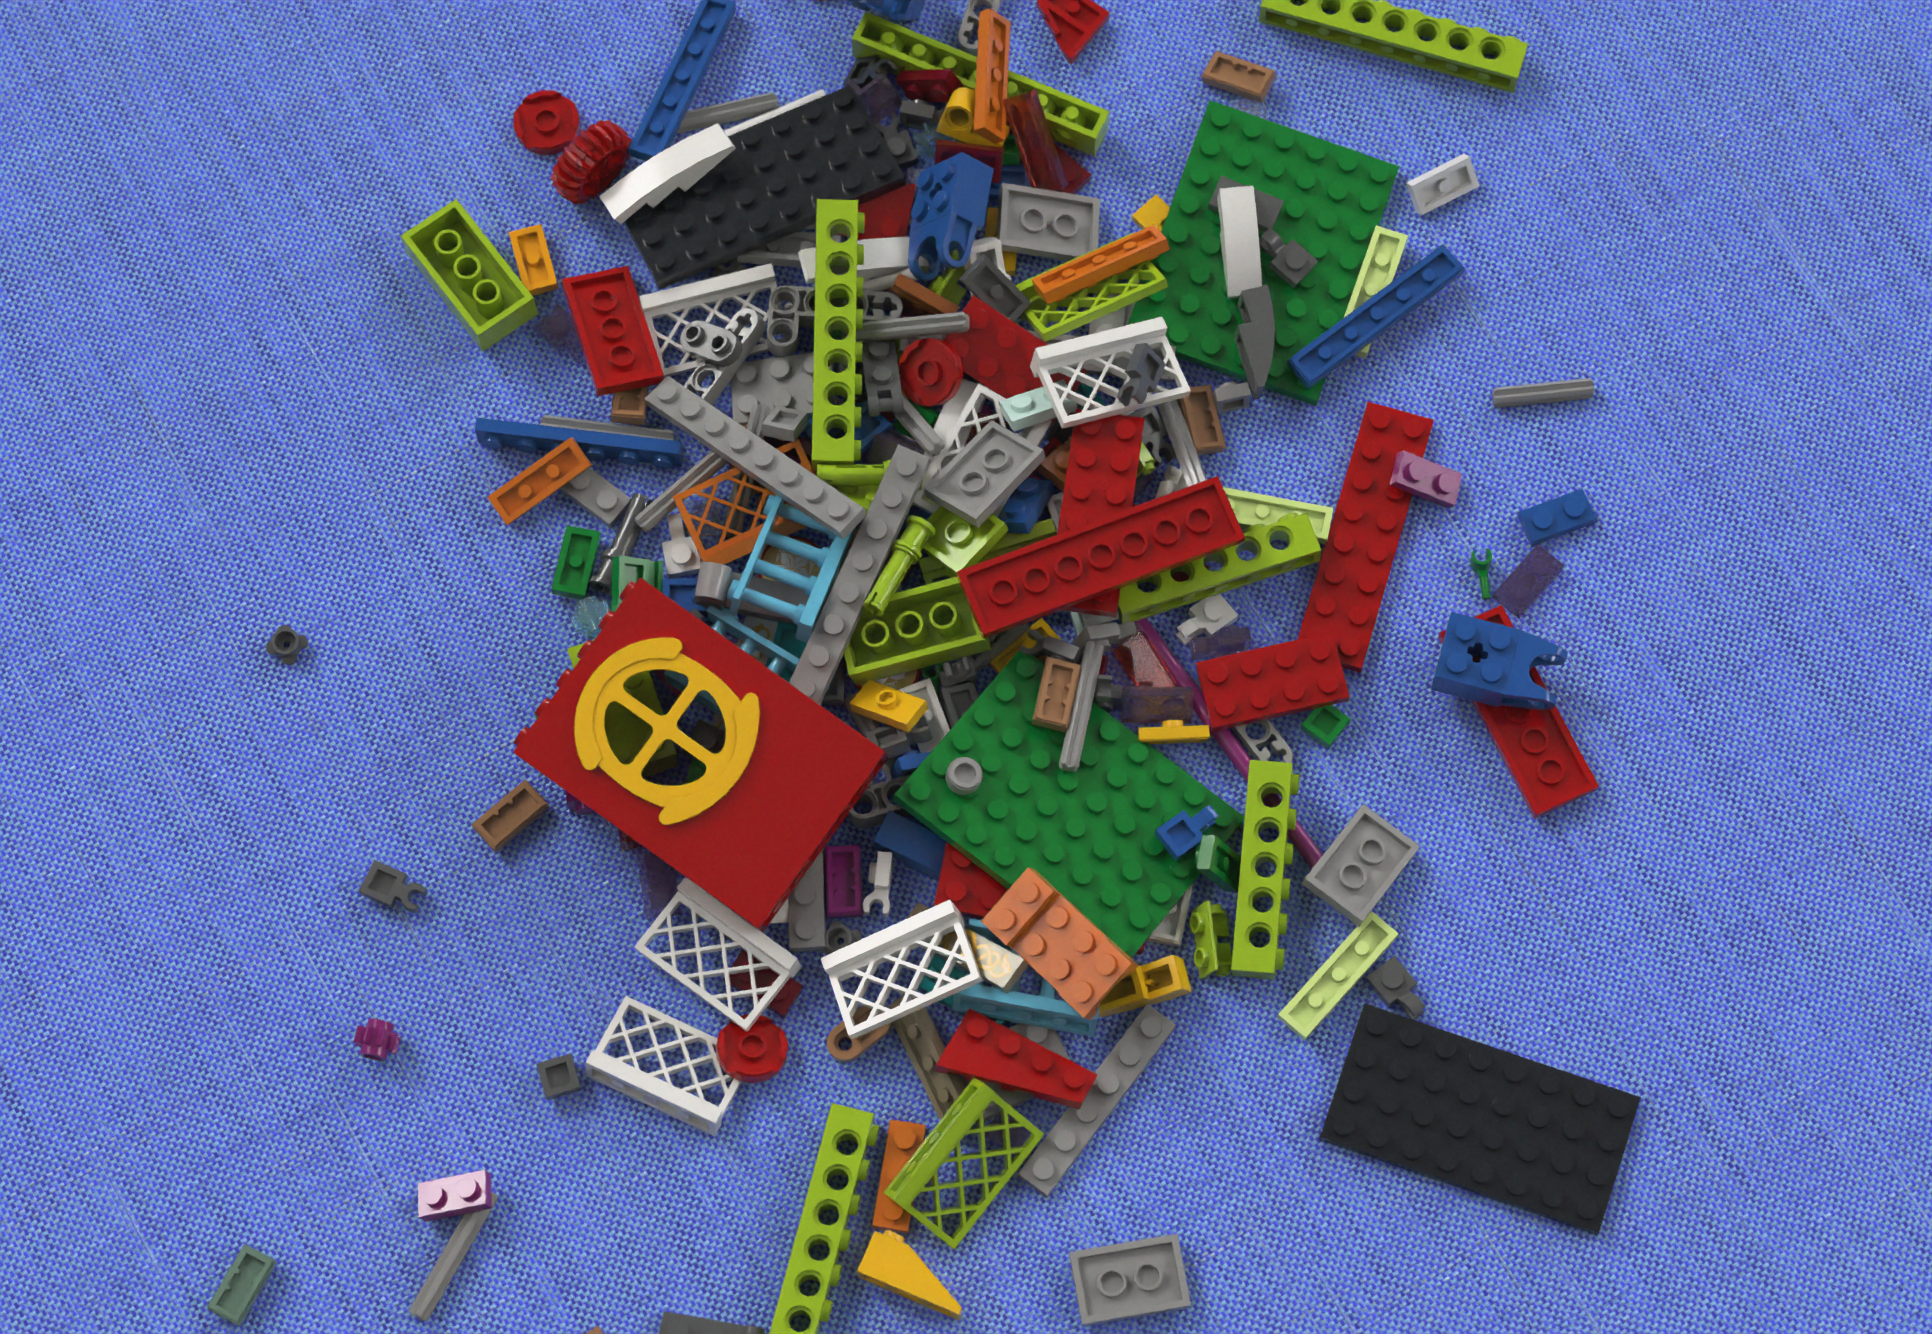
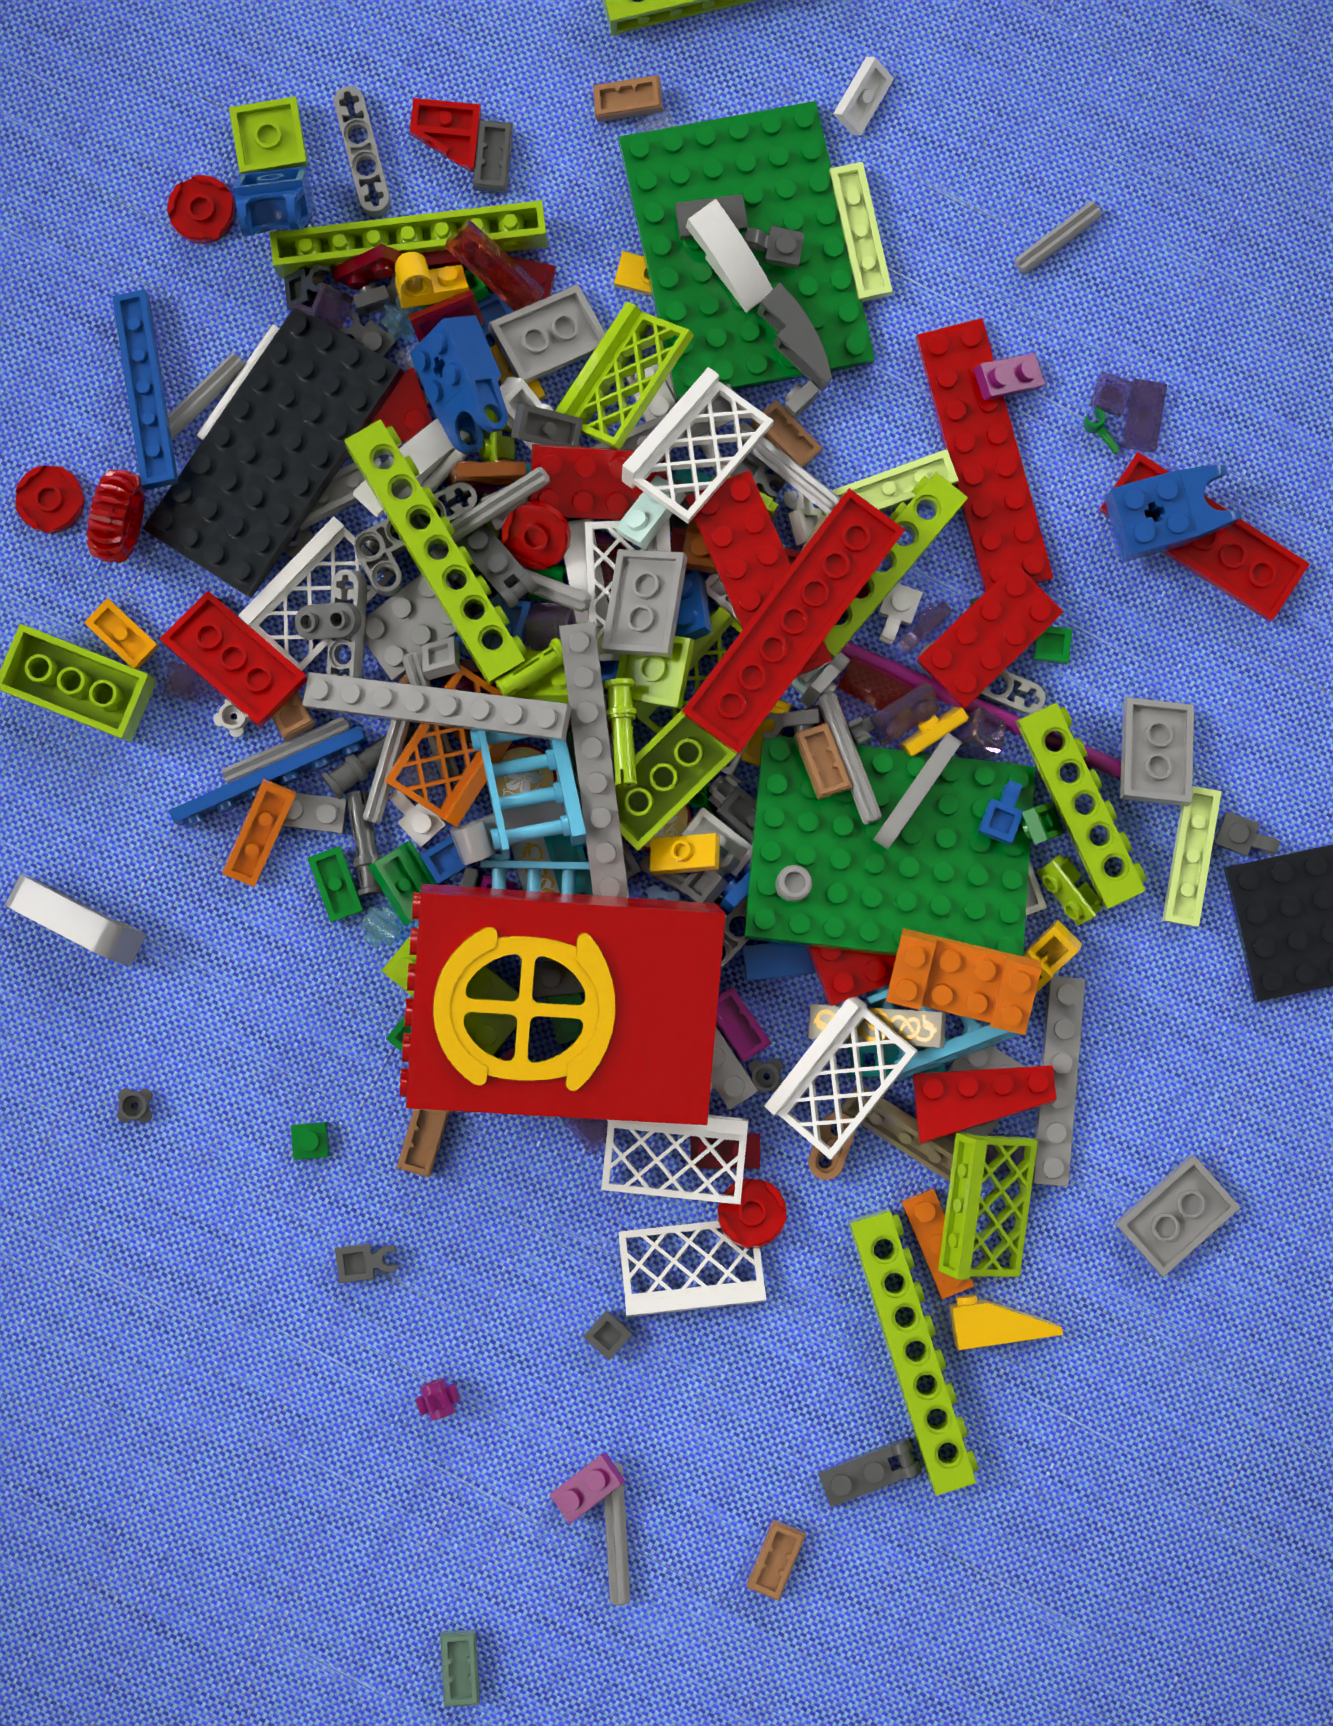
camera: 35 degrees left, 15 degrees up
(341, 464) = (75, 920): none -> beam
(413, 761) = (310, 1140): none -> green plate
(573, 375) = (224, 719): none -> white plate
(656, 477) = (357, 767): none -> dark grey pin
(674, 167) = (189, 487): white slope -> none
(880, 875) = (766, 1001): white plate -> none
(991, 76) = (421, 228): orange plate -> none
(1094, 60) = (493, 156): none -> dark grey plate
(1100, 264) = (621, 348): orange plate -> none
(1123, 766) = (917, 791): none -> light grey beam
(1145, 372) = (728, 430): dark grey plate -> none
(1210, 760) = (980, 735): none -> clear purple panel
(1375, 316) = (881, 253): blue tile -> none
(1508, 545) = (1111, 393): none -> clear purple plate
(1556, 517) = (1134, 343): blue plate -> none

